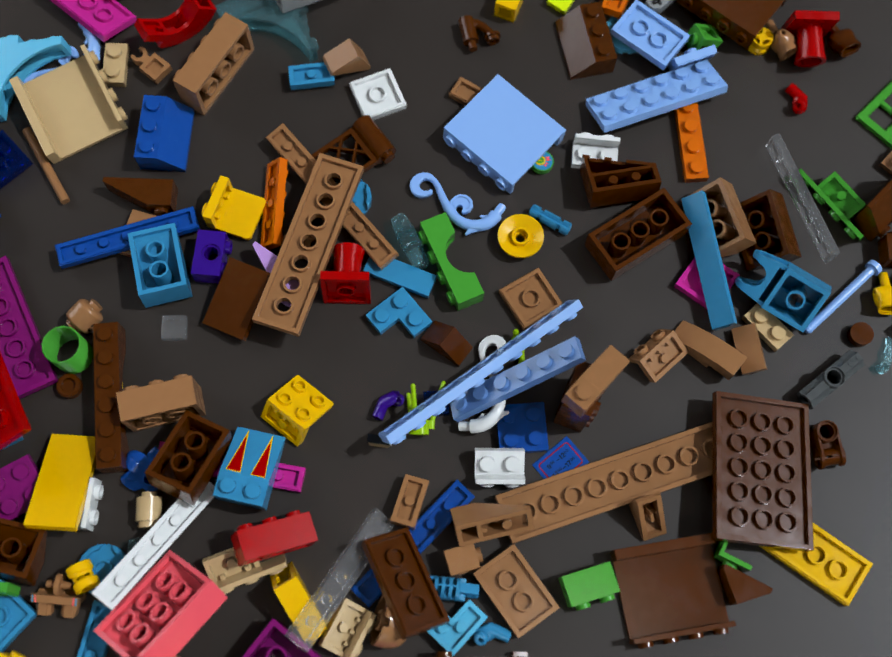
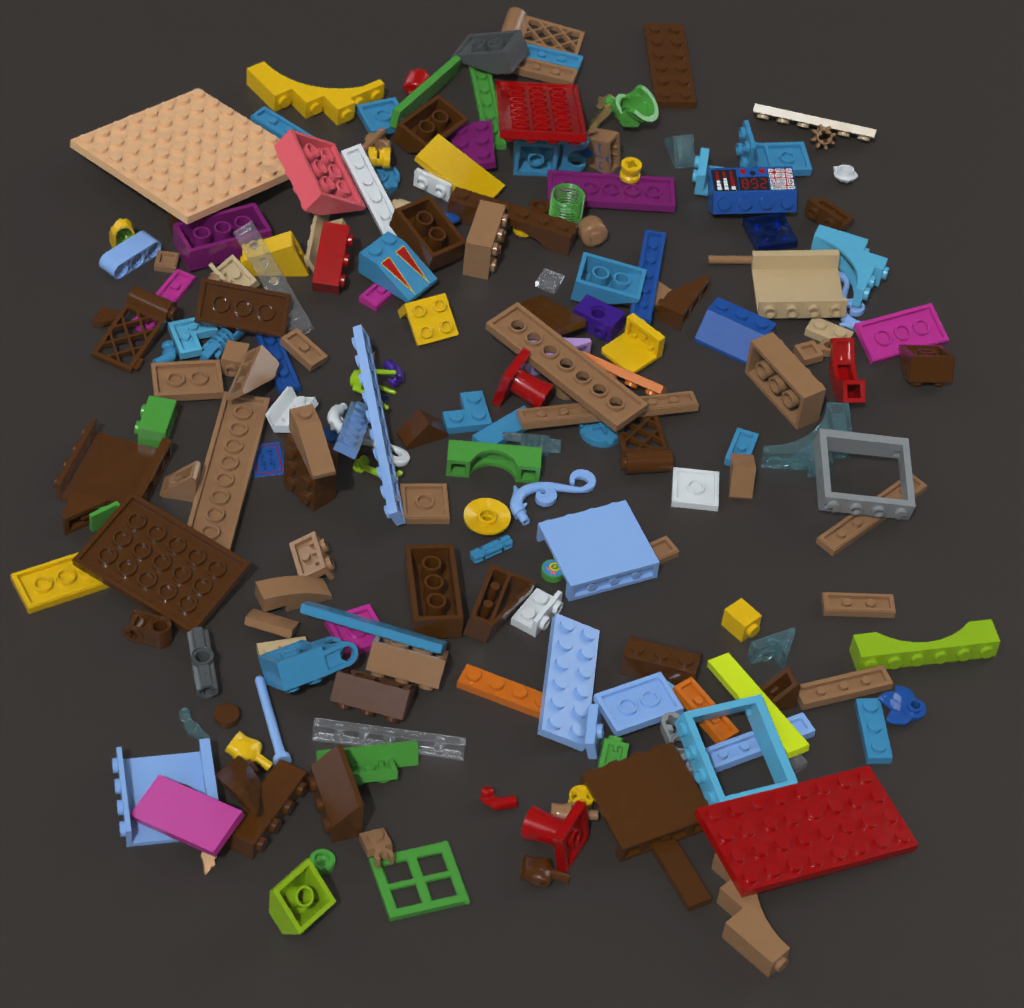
camera: 115 degrees right, 25 degrees down
(469, 34) = (729, 580): reddish brown plant -> none

